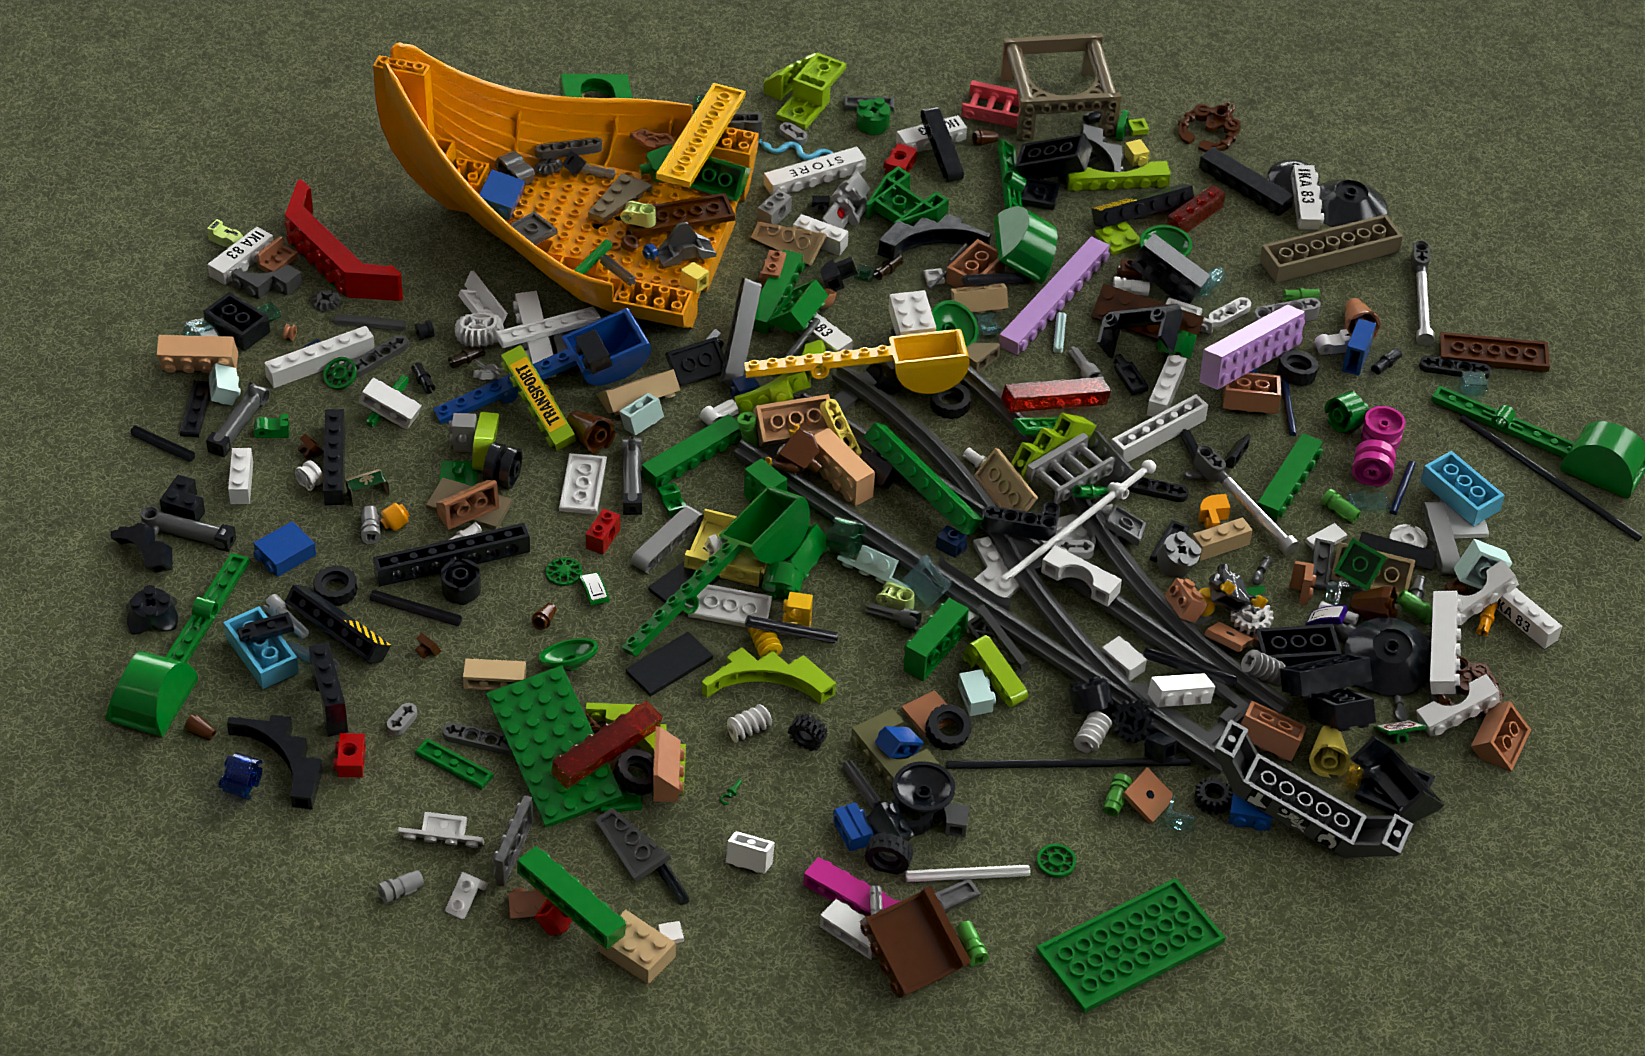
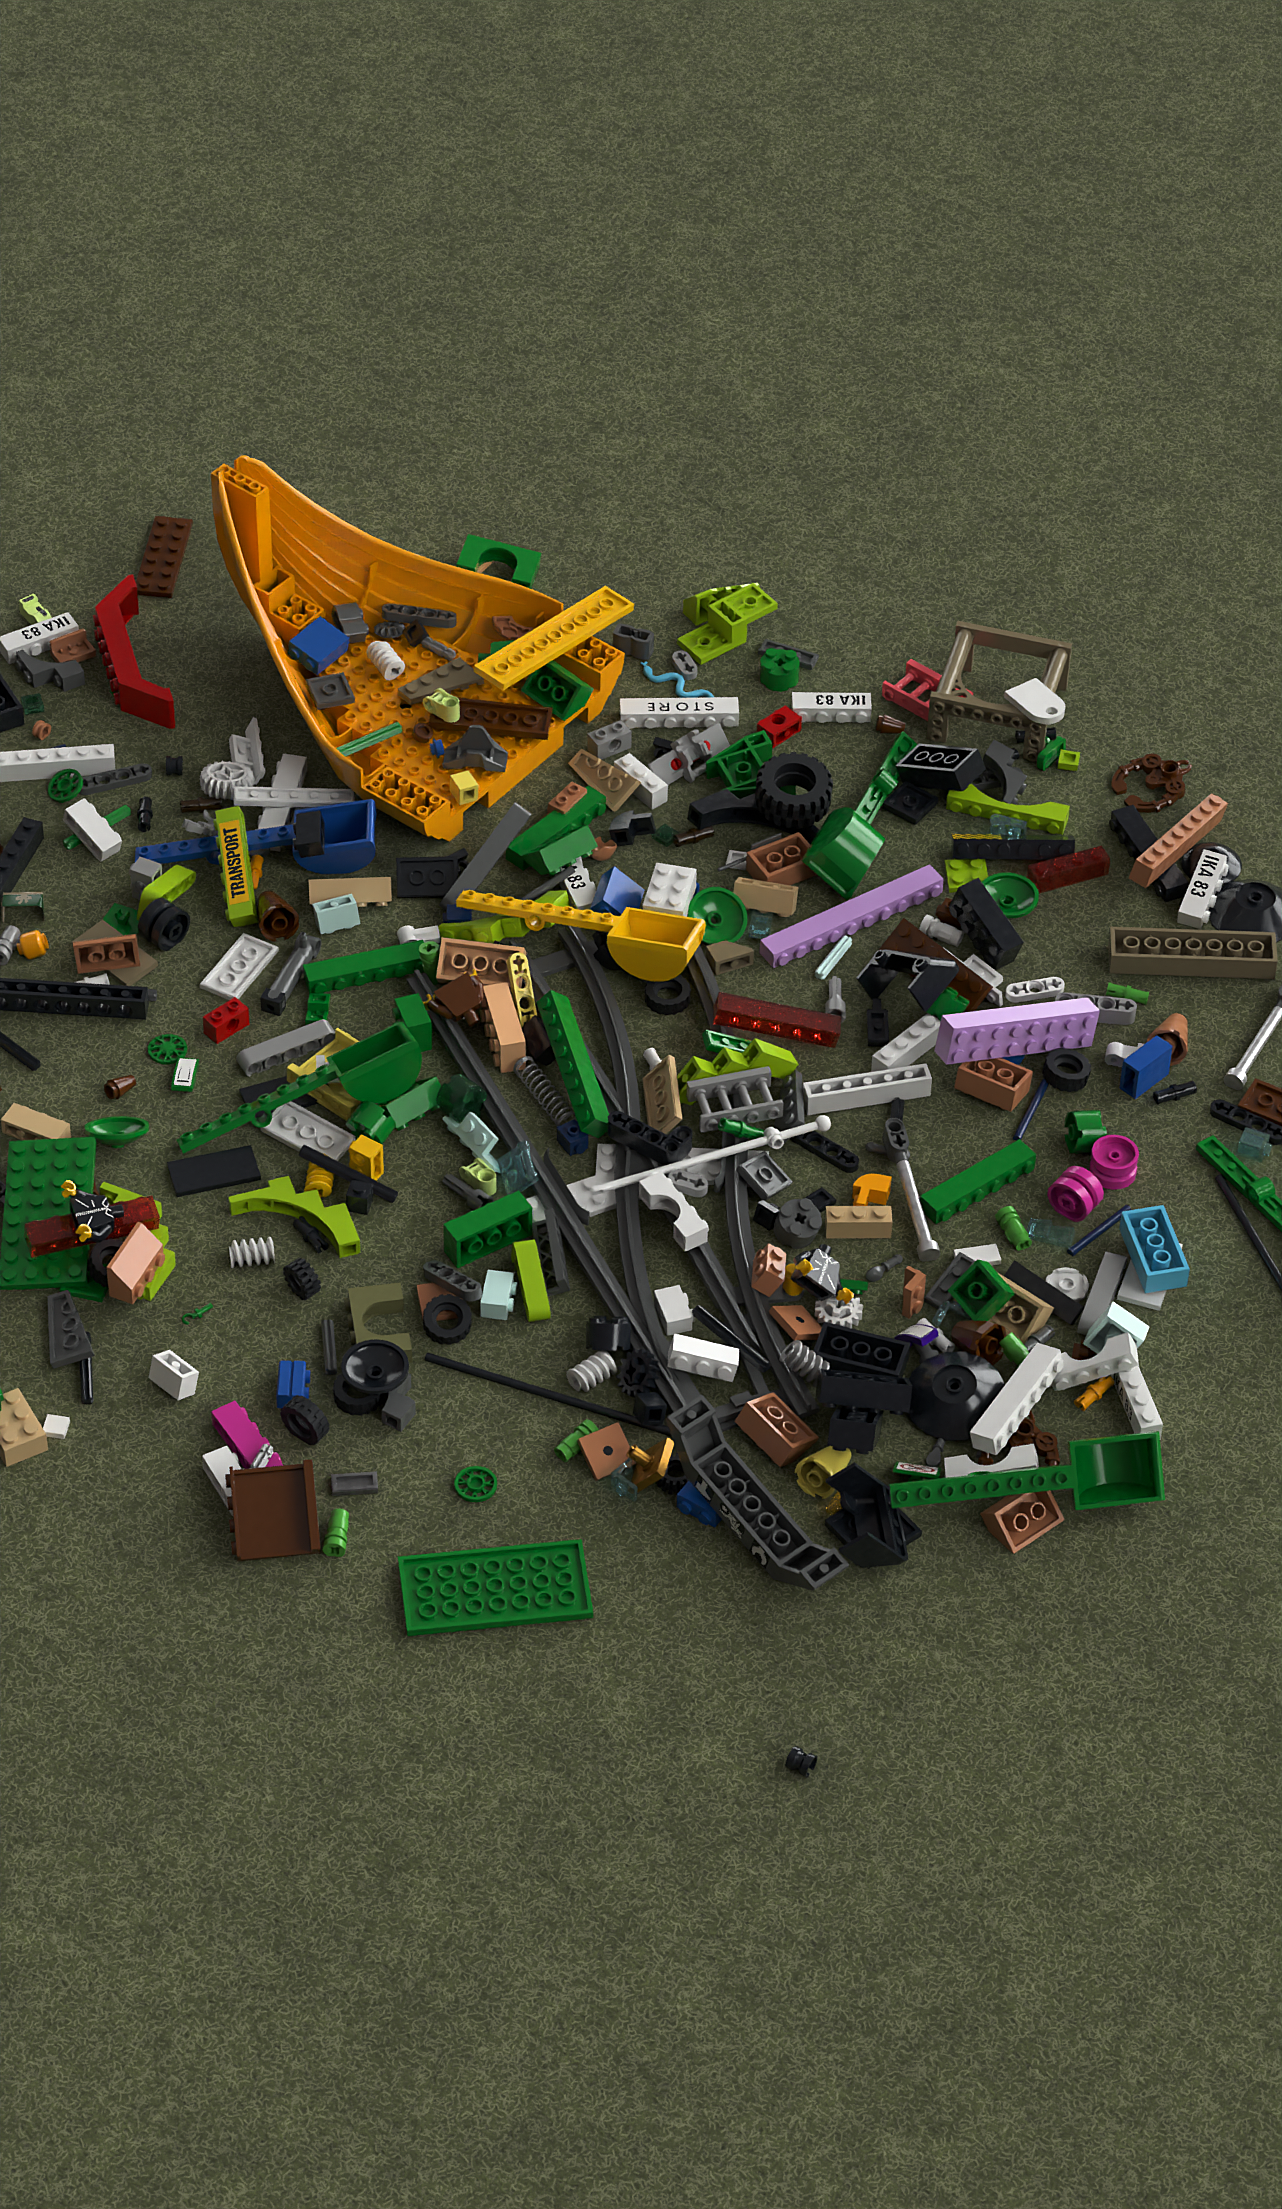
camera: 25 degrees right, 0 degrees up
(306, 157) = (163, 556): none -> reddish brown plate
(325, 305) = (90, 710): dark grey gear -> none
(372, 322) = (126, 742): dark grey axle -> none
(460, 581) = (56, 1027): black brick -> none
(564, 191) = (385, 659): none -> white piece
(609, 734) = (91, 1213): none -> black torso
(617, 269) = (385, 757): dark grey axle -> none
(785, 692) = (310, 1234): none -> black pin
(810, 645) = (359, 1197): none -> black brick
(863, 330) = (616, 893): none -> blue brick
(888, 819) = (325, 1391): black brick -> none
(898, 742) = (384, 1316): blue brick -> none
(914, 690) = (452, 1280): none -> dark grey beam
(934, 526) = (557, 1122): none -> light grey piece
(942, 144) = (830, 720): black beam -> none
(963, 191) = (796, 771): none -> black tyre
(966, 873) = (378, 1466): white axle -> none
(988, 279) = (790, 879): black axle -> none
(1107, 84) = (1036, 702): none -> white tile
(1131, 188) = (1007, 825): none -> clear light blue plate
(1136, 153) = (1046, 788): light yellow brick -> none
(1145, 556) = (766, 1214): none -> black tile
(1194, 793) = (650, 1463): none -> pearl gold tile
(1217, 276) = (1034, 949): clear light blue piece -> none
(1237, 451) = (940, 1139): black slope -> none
(1268, 164) = (1178, 840): none -> nougat brick
(1467, 1004) = (801, 1761): none -> black wheel
(1550, 682) = (1099, 1472): none -> green plate

